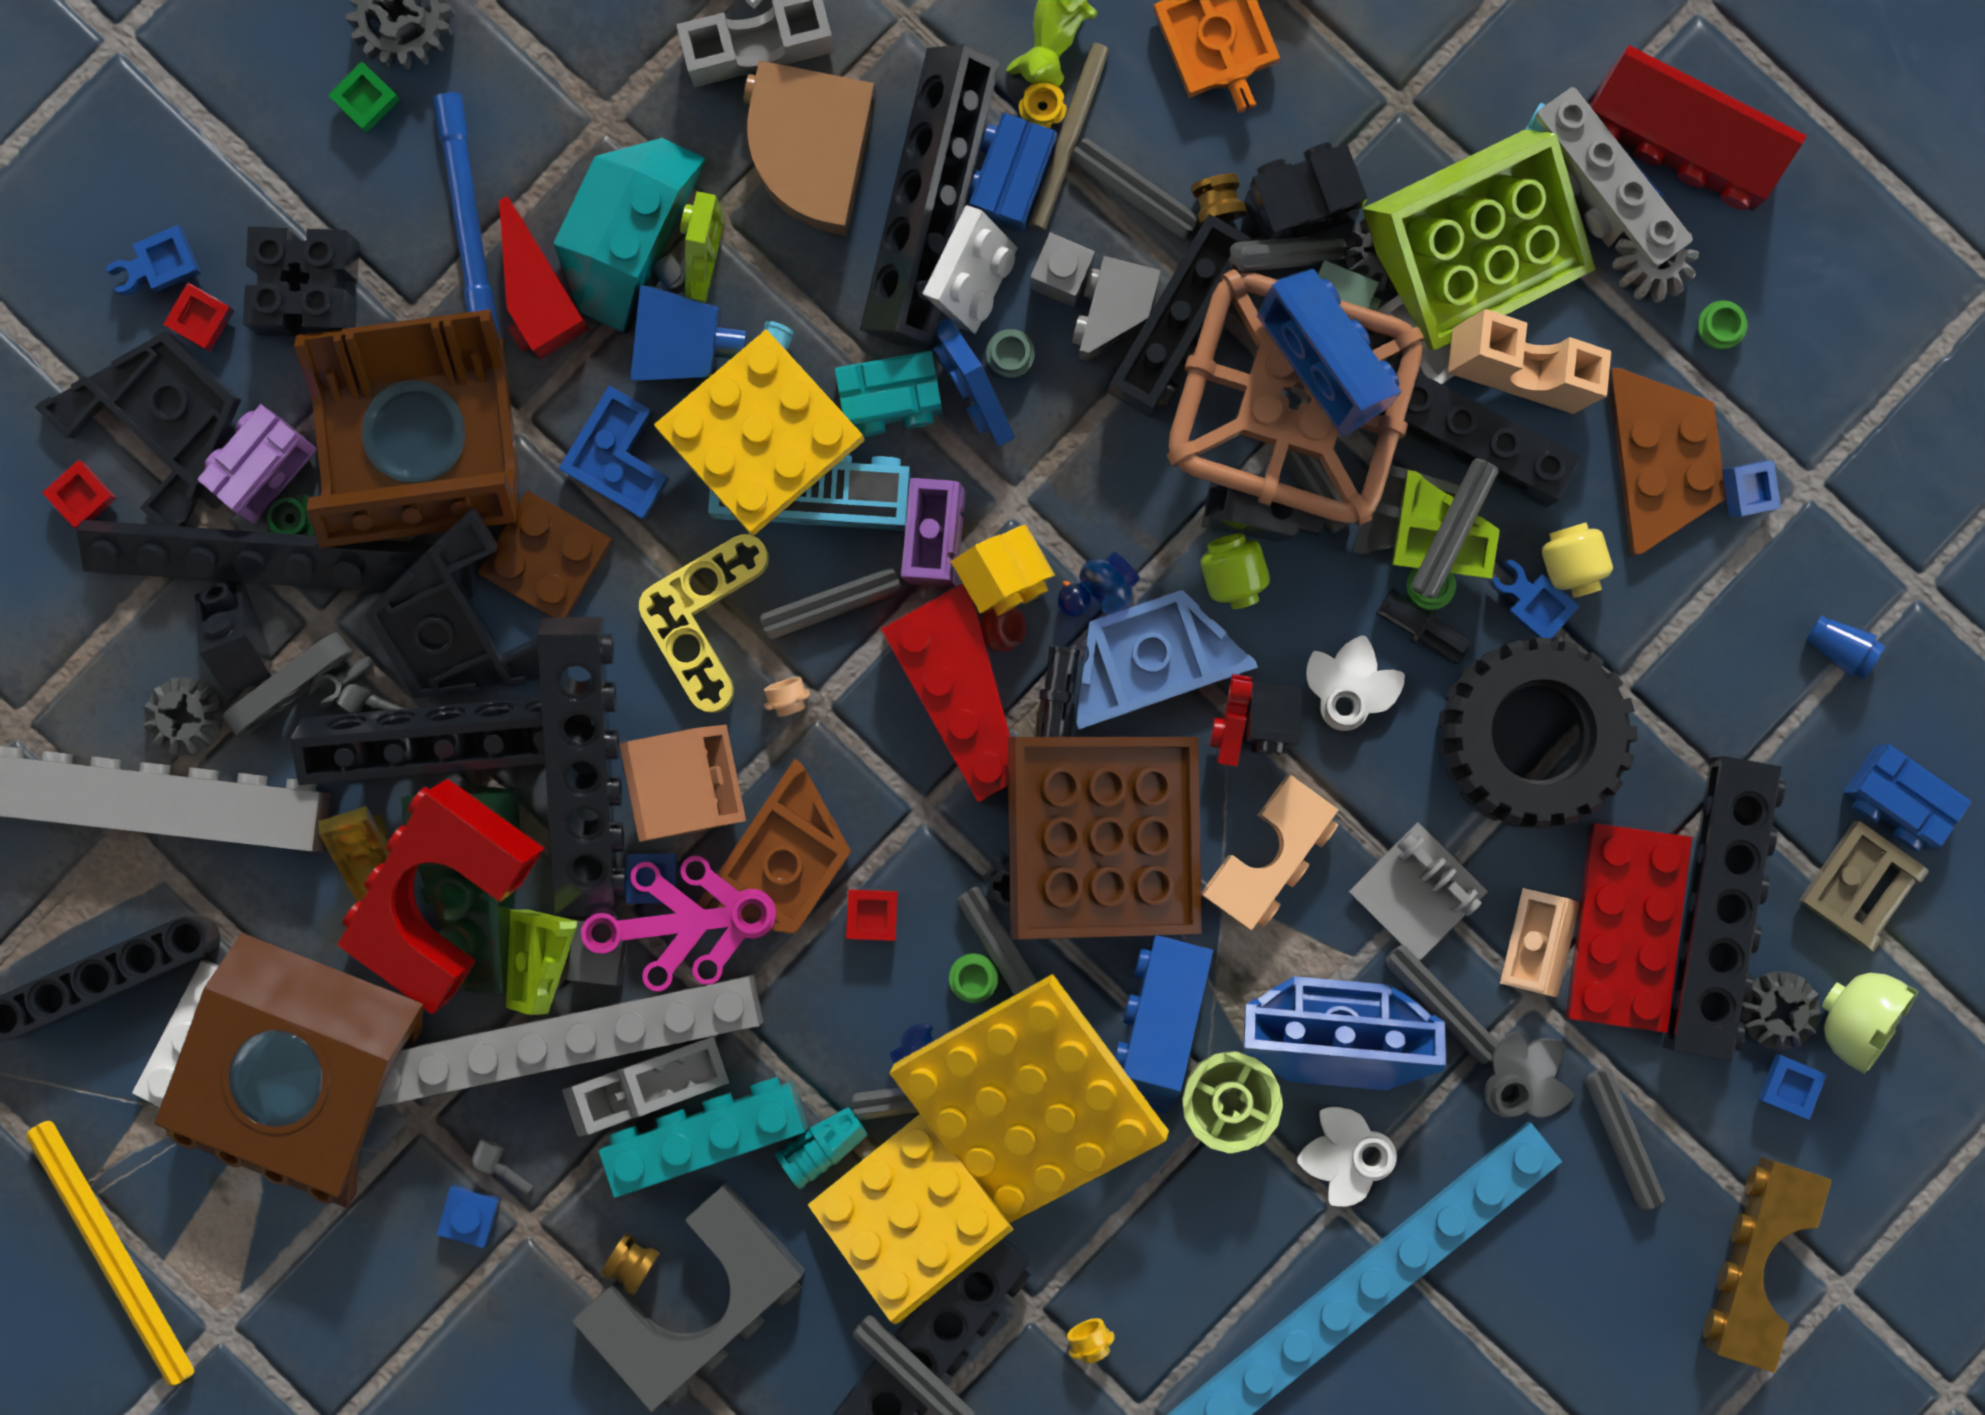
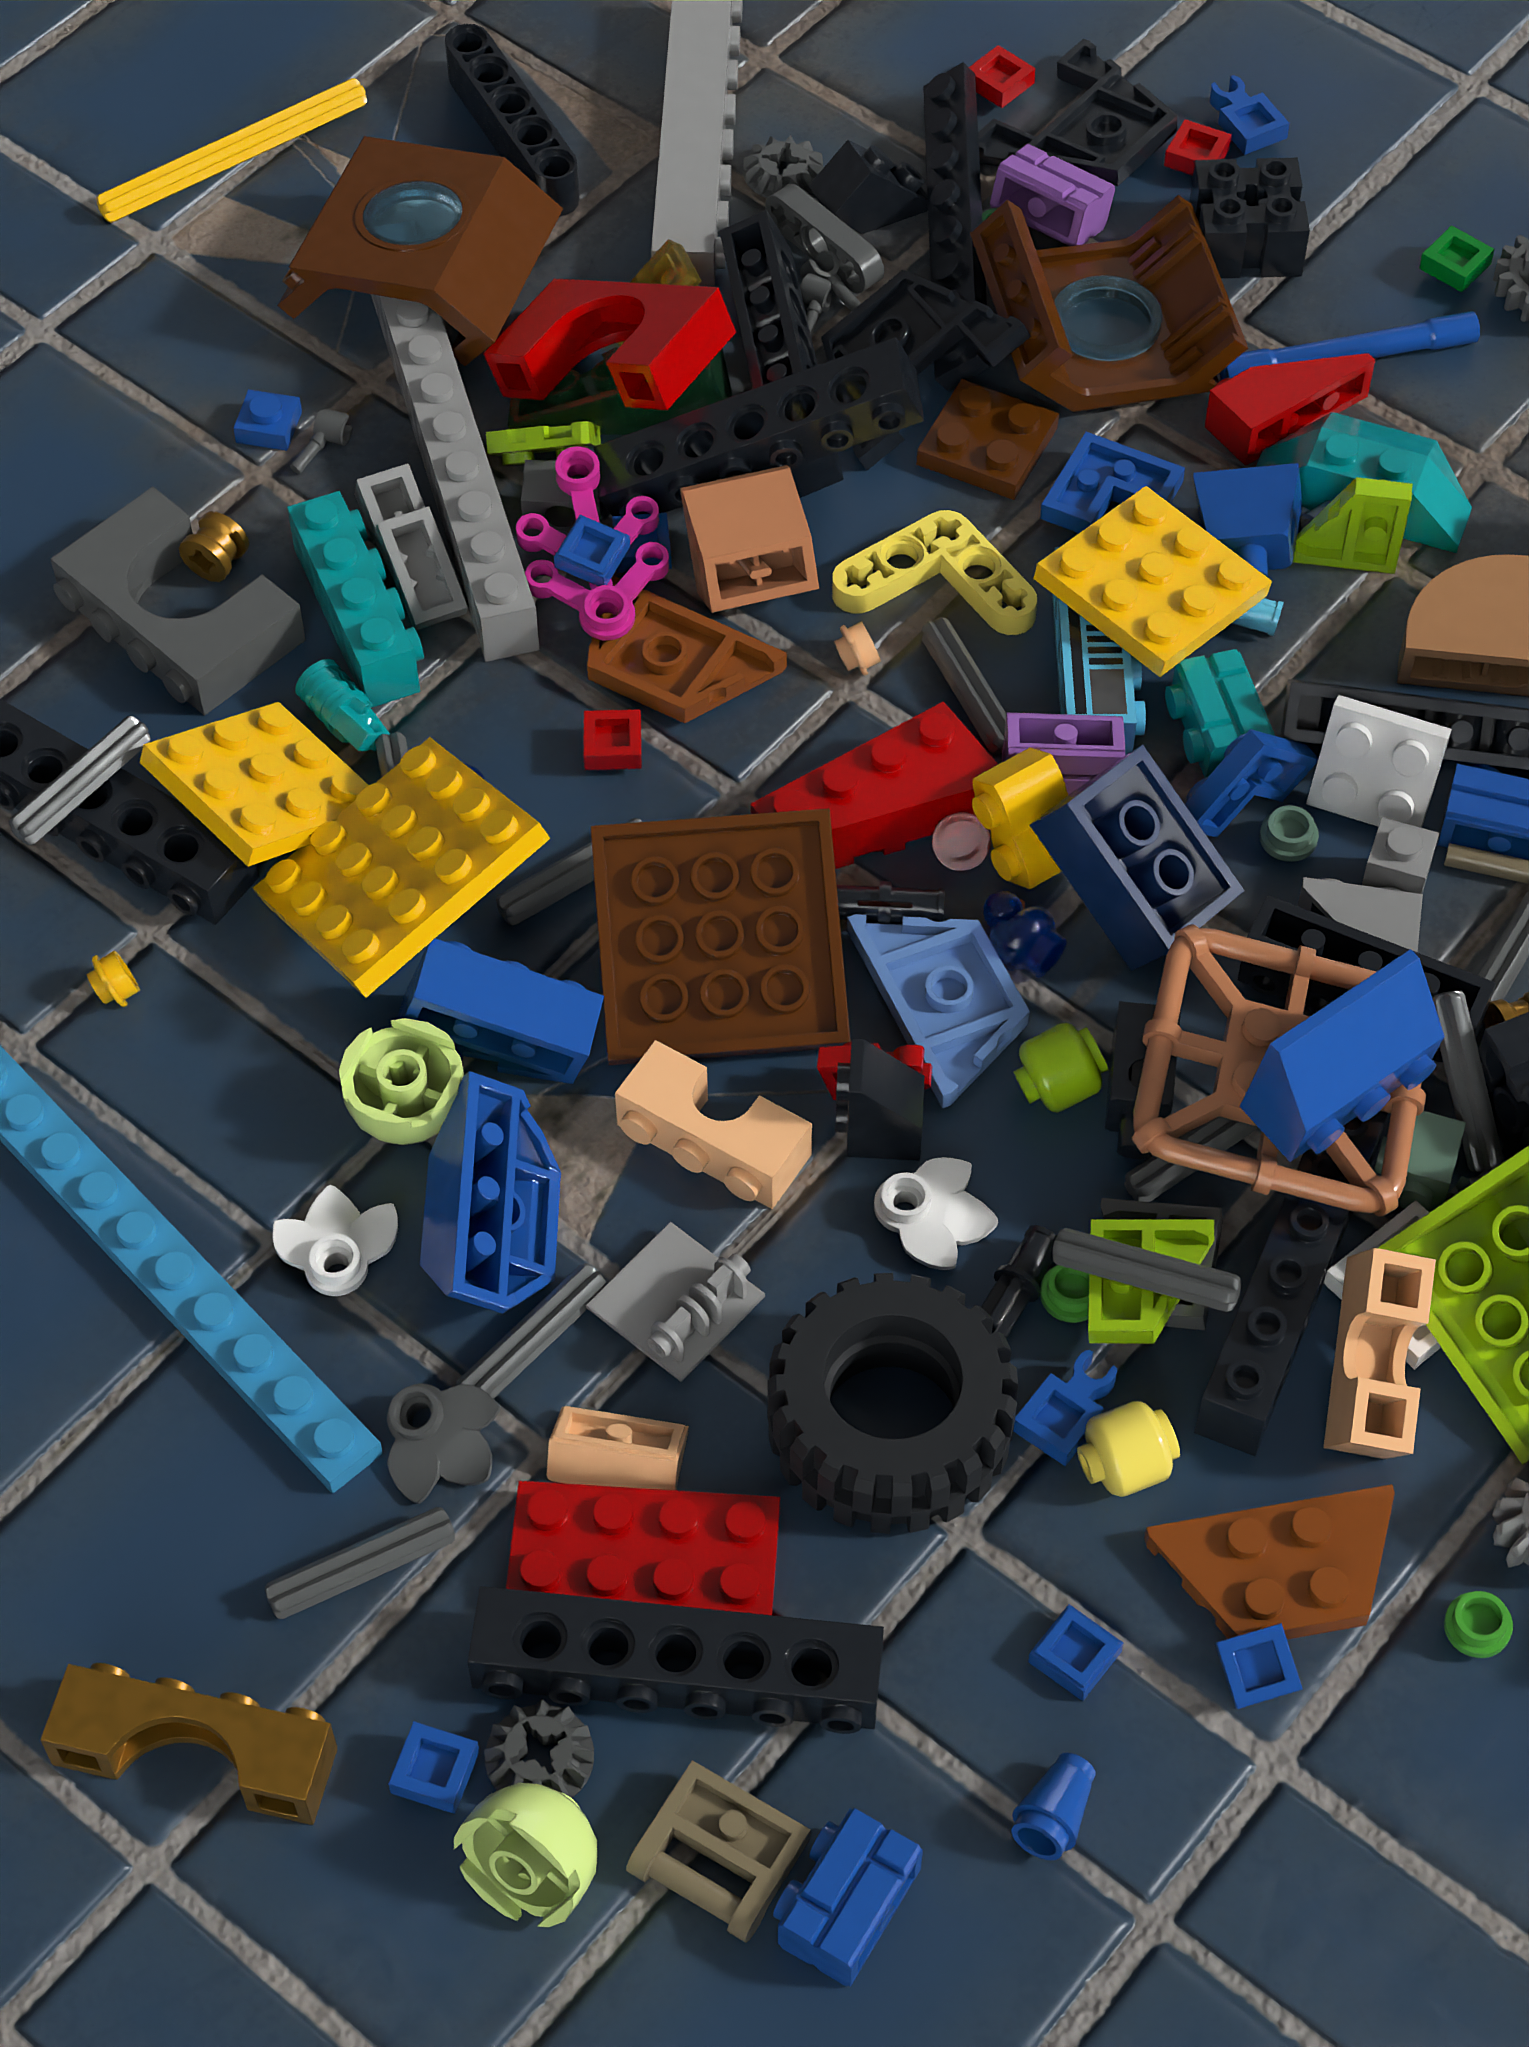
camera: 85 degrees right, 30 degrees down
(693, 924) = (592, 551): none -> blue tile
(973, 978) = (555, 848): bright green plate -> none
(1062, 484) = (1137, 857): none -> dark blue slope
(1723, 617) = (1075, 1652): none -> blue tile

